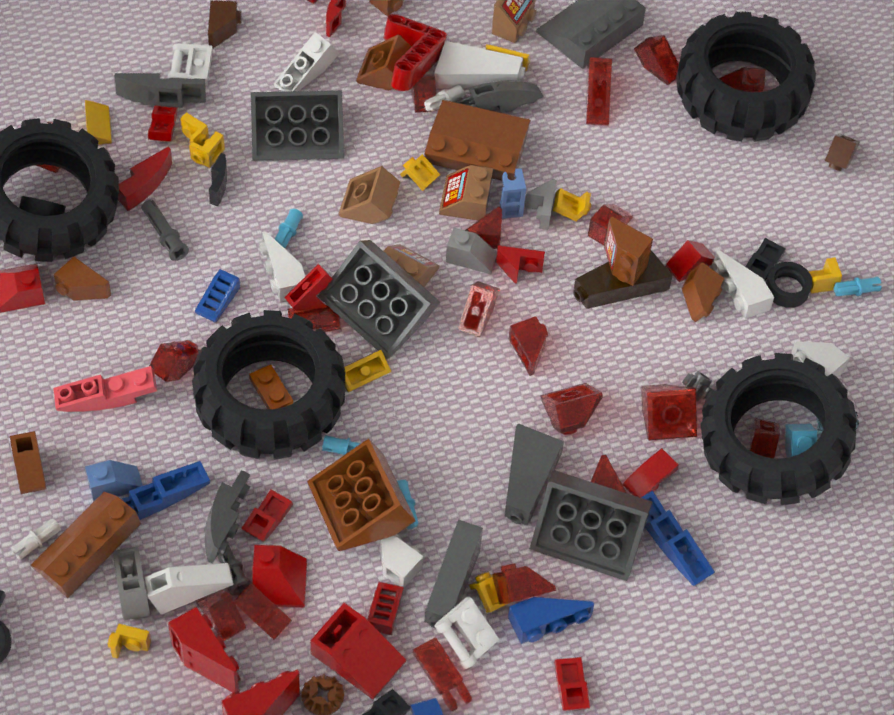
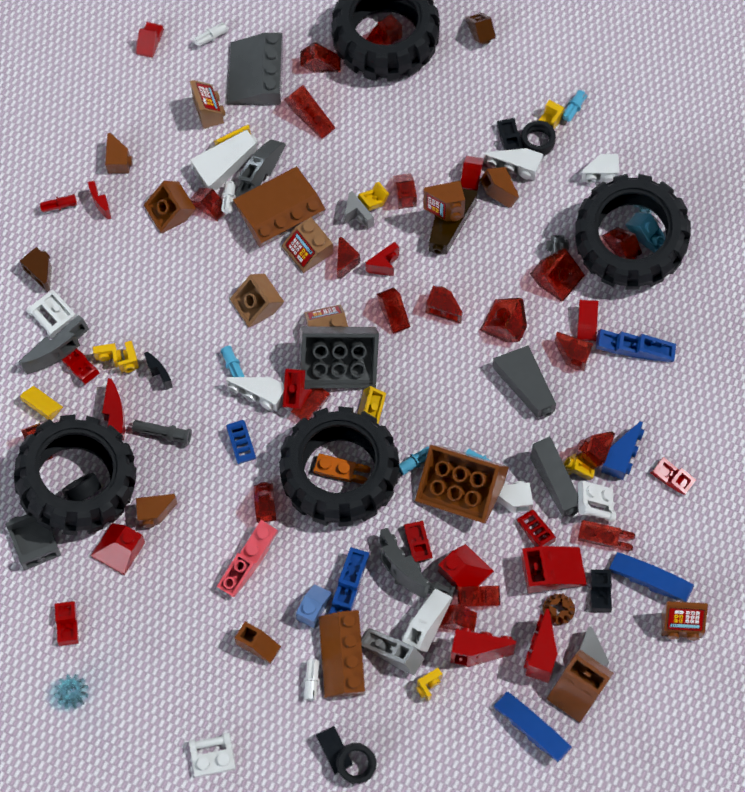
camera: 40 degrees left, 10 degrees up
(297, 125) = (163, 294): dark grey slope -> none
(307, 65) = (123, 251): white slope -> none
(420, 171) = (266, 256): yellow bracket -> none
(425, 49) = (175, 169): red beam -> none
(470, 251) = (350, 280): light grey slope -> none
(513, 195) = (340, 220): medium blue hinge -> none
(590, 525) = (594, 379): dark grey slope -> none

